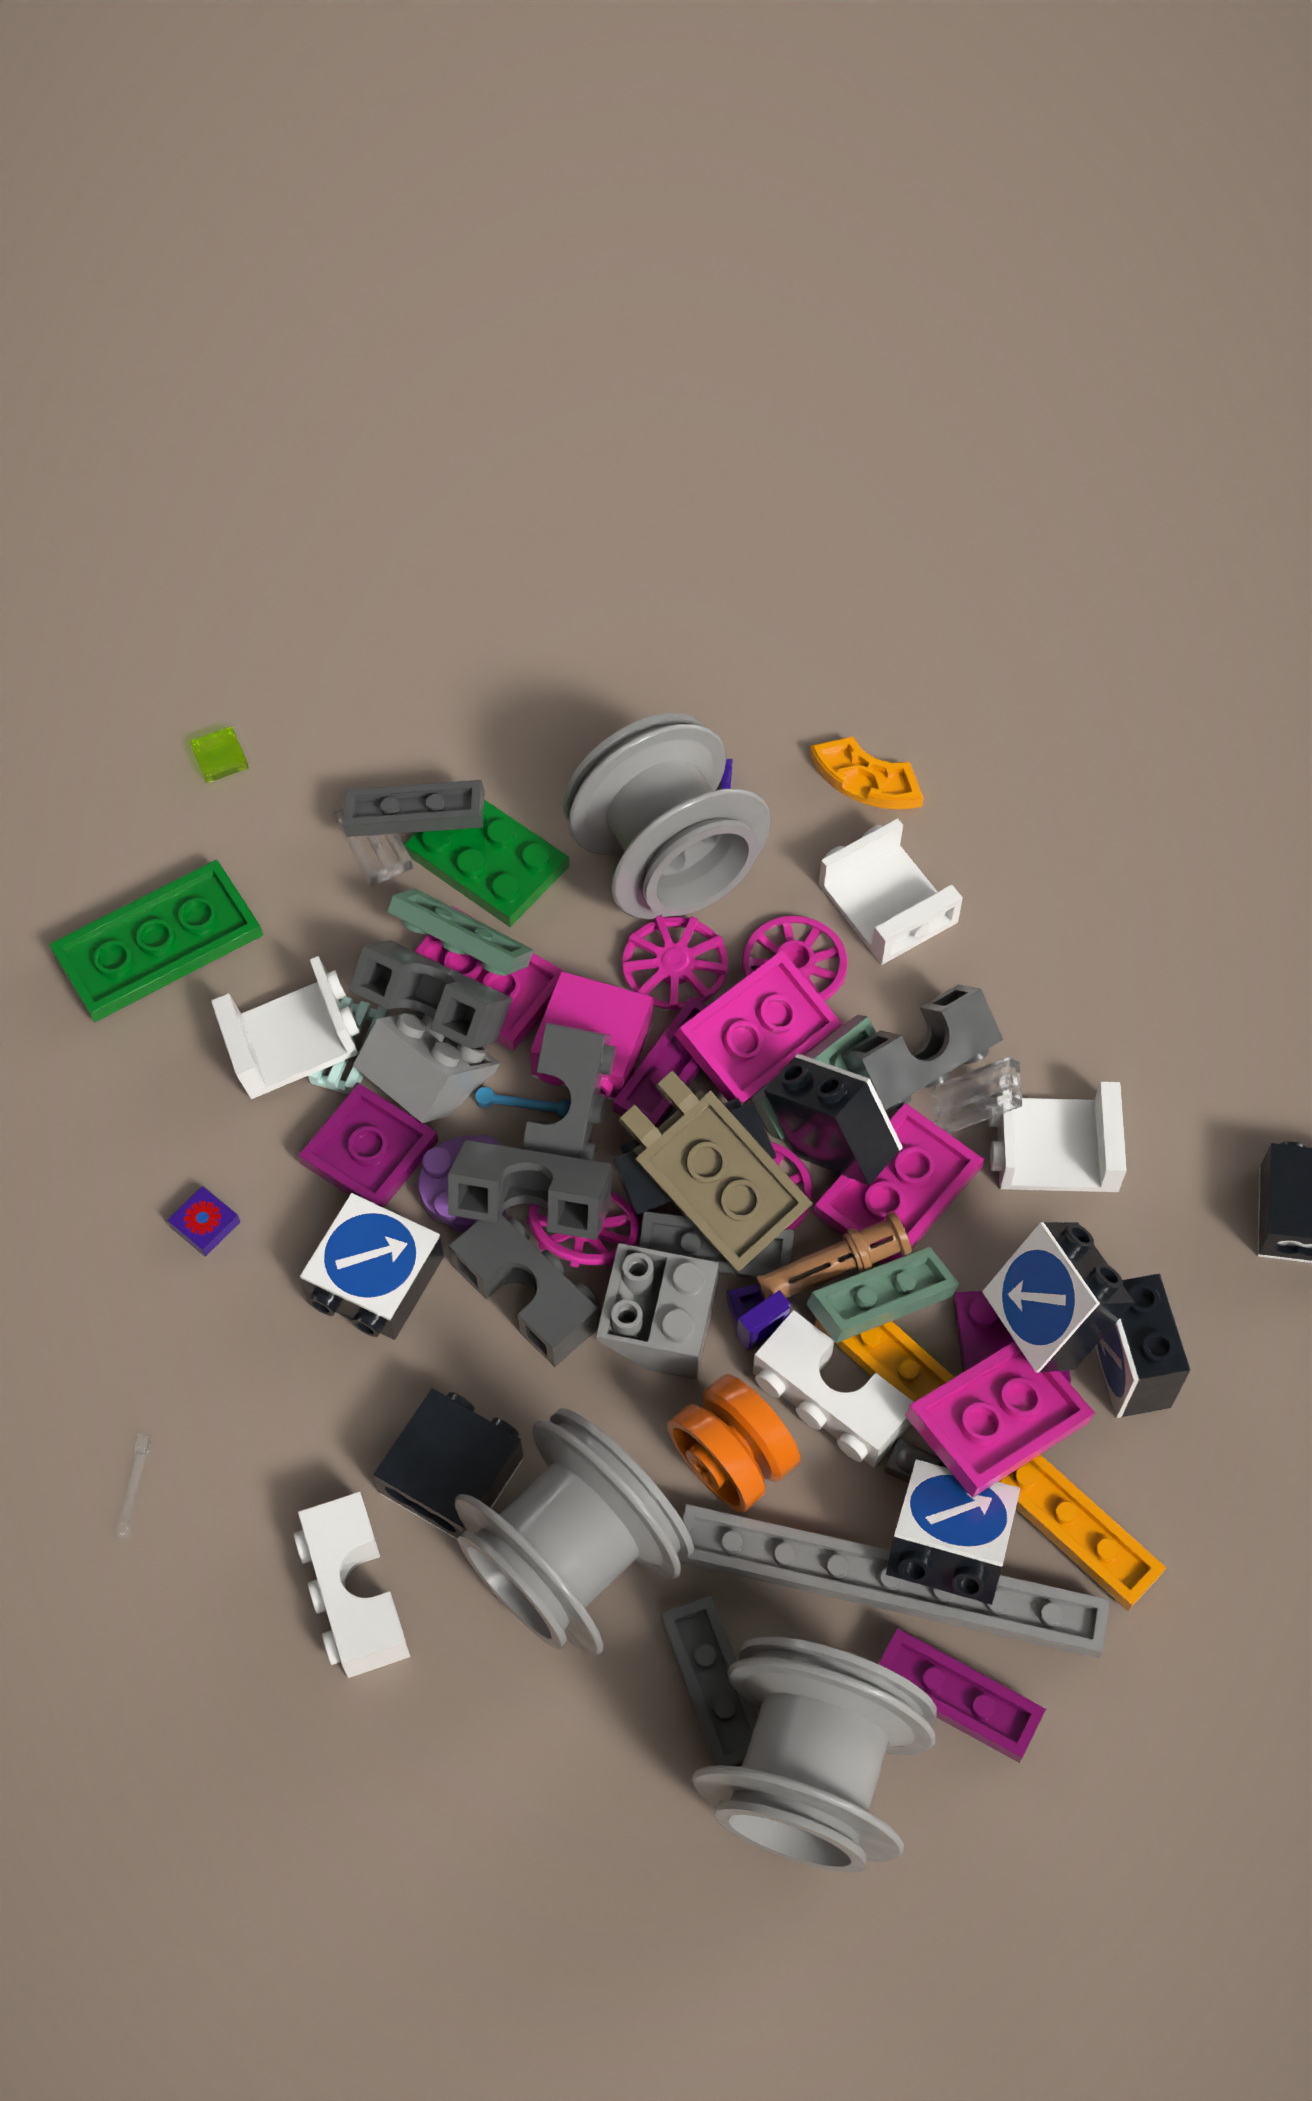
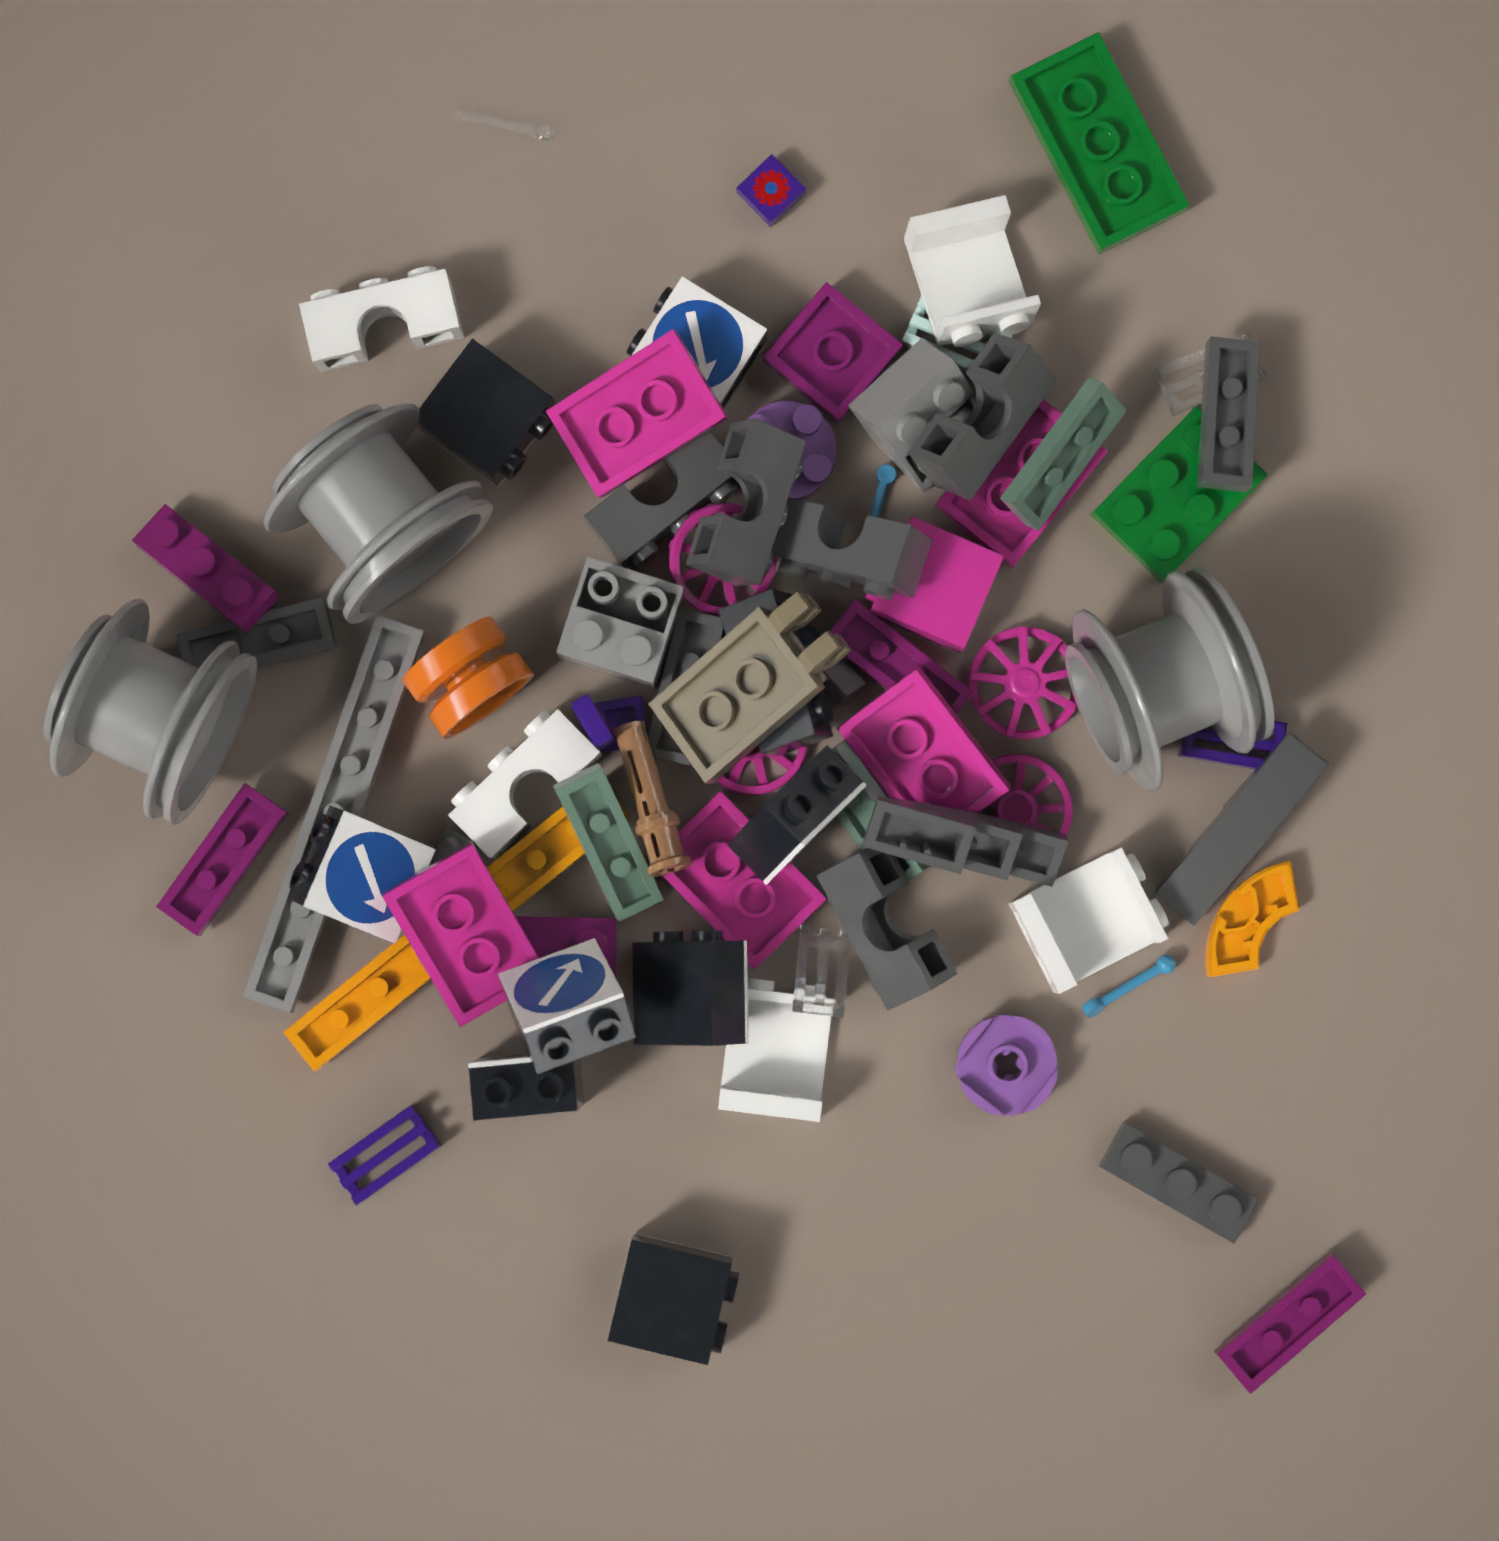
camera: 95 degrees right, 25 degrees up
(219, 754) = (1337, 212): clear neon green tile -> none
(446, 1299) = (637, 414): none -> dark pink plate
(641, 1747) = (205, 568): none -> magenta plate
(793, 782) = (1241, 828): none -> dark grey slope
(835, 981) = (964, 840): none -> dark grey slope
(918, 835) = (1165, 964): none -> dark azure hinge
(1010, 1195) = (690, 990): none -> black piece
(1028, 970) = (1035, 1060): none -> medium lavender plate
(1109, 811) = (1178, 1182): none -> dark grey plate
(1213, 717) = (1290, 1322): none -> magenta plate
(1248, 1482) = (348, 1179): none -> dark purple tile

